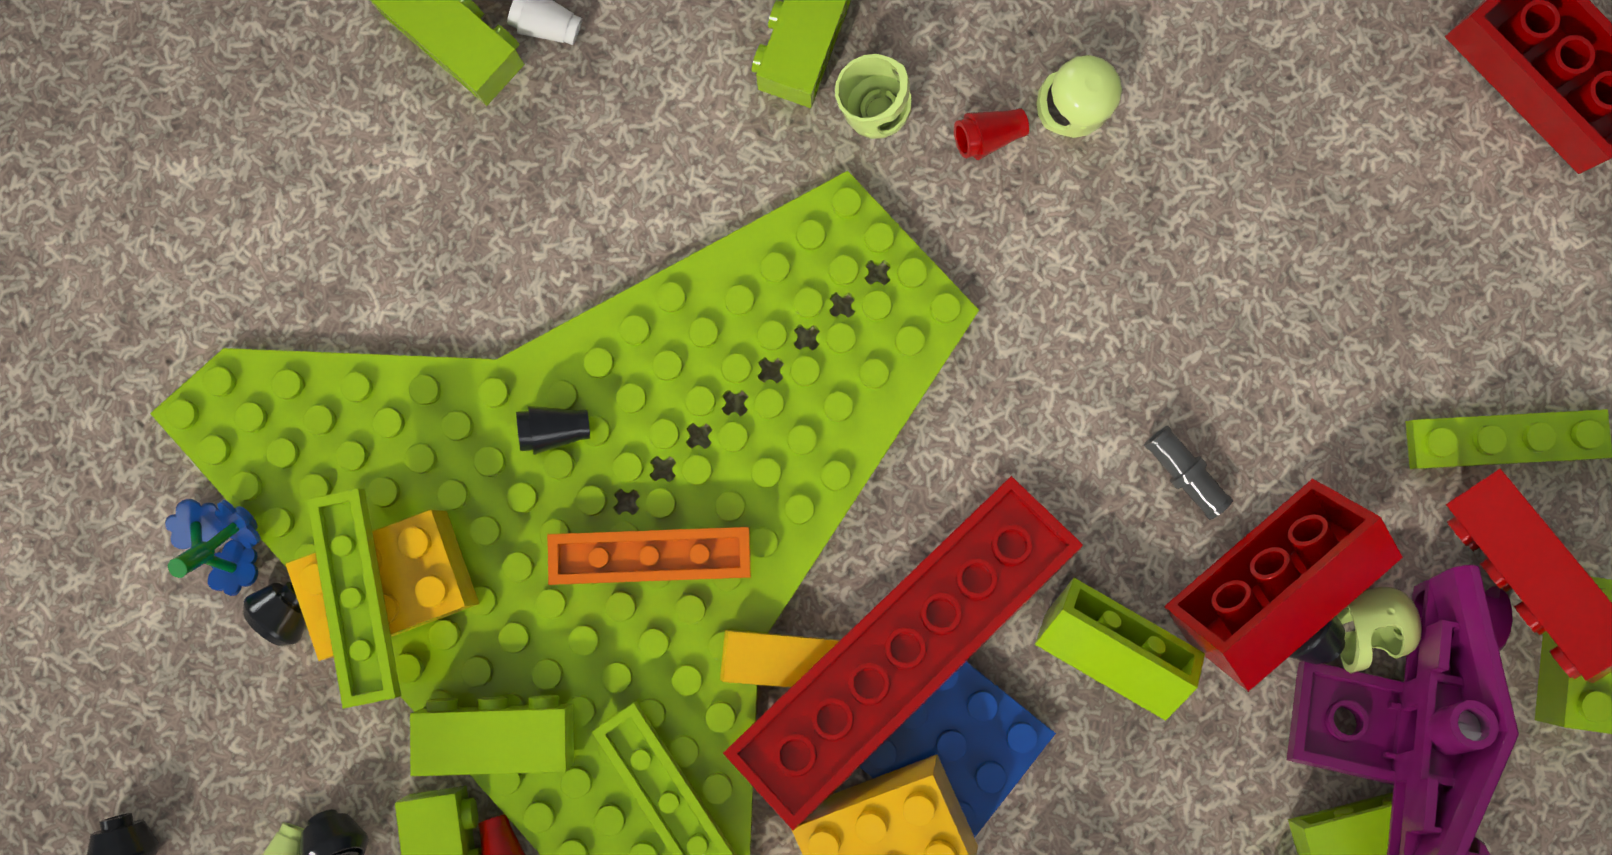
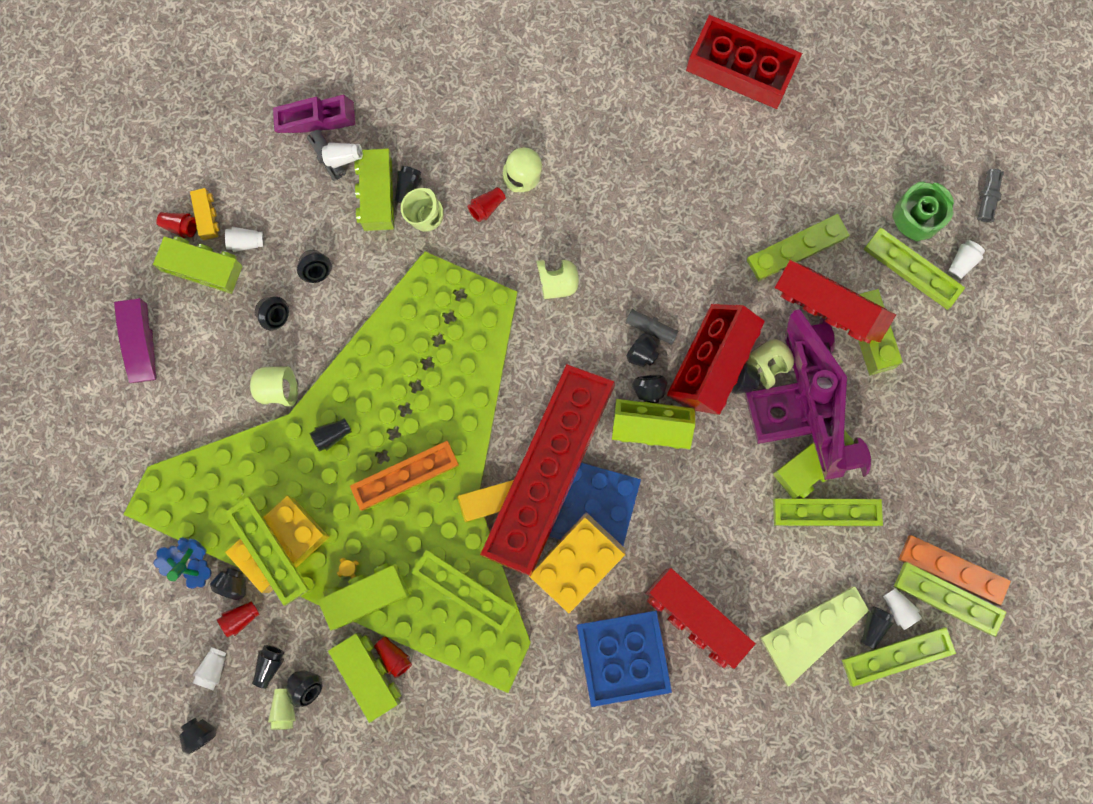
camera: 25 degrees left, 5 degrees down
(188, 743) = (210, 669): none -> white cone
(268, 675) = (237, 619): none -> red cone
(289, 118) = (135, 340): none -> magenta slope
(289, 774) = (267, 664): none -> black cone
(480, 295) = (267, 385): none -> yellowish green helmet
(487, 673) = (347, 568): none -> yellow piece
(539, 169) = (272, 312): none -> black cone
(644, 117) = (313, 266): none -> black cone
(868, 34) = (407, 180): none -> black cone
(1060, 325) = (558, 282): none -> yellowish green helmet
(1140, 581) = (650, 387): none -> black cone
(1156, 511) = (643, 351): none -> black cone

